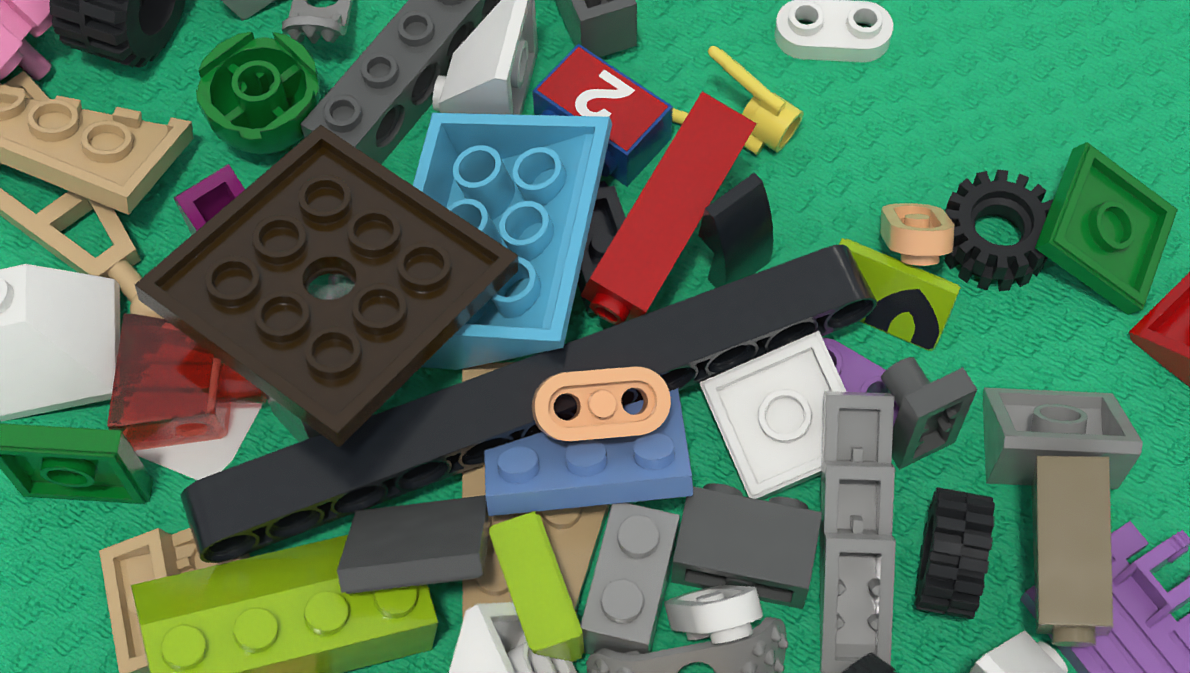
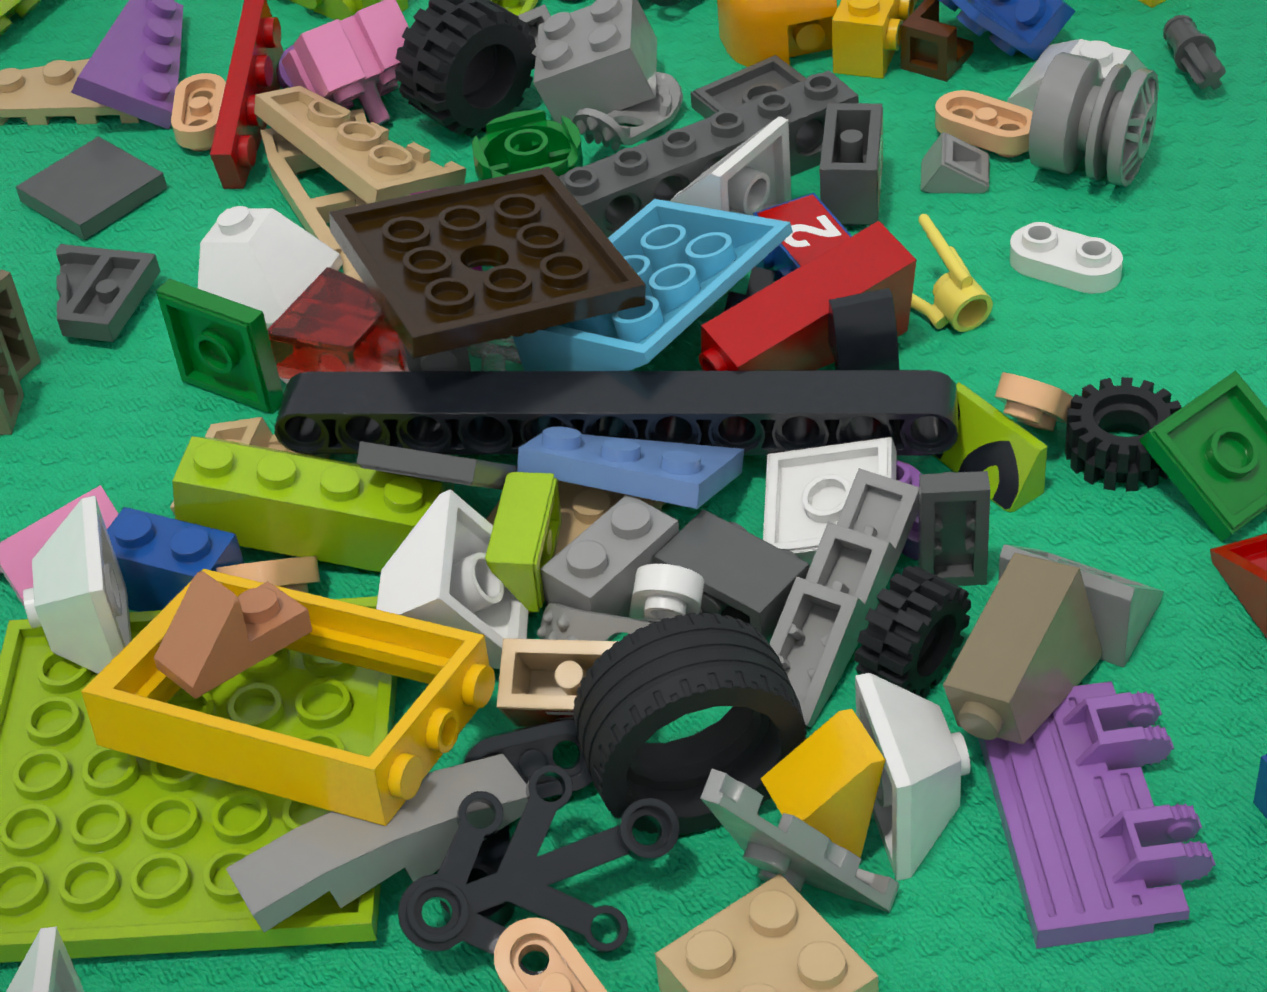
camera: 30 degrees right, 20 degrees down
(599, 403) = (656, 406): light nougat plate -> none

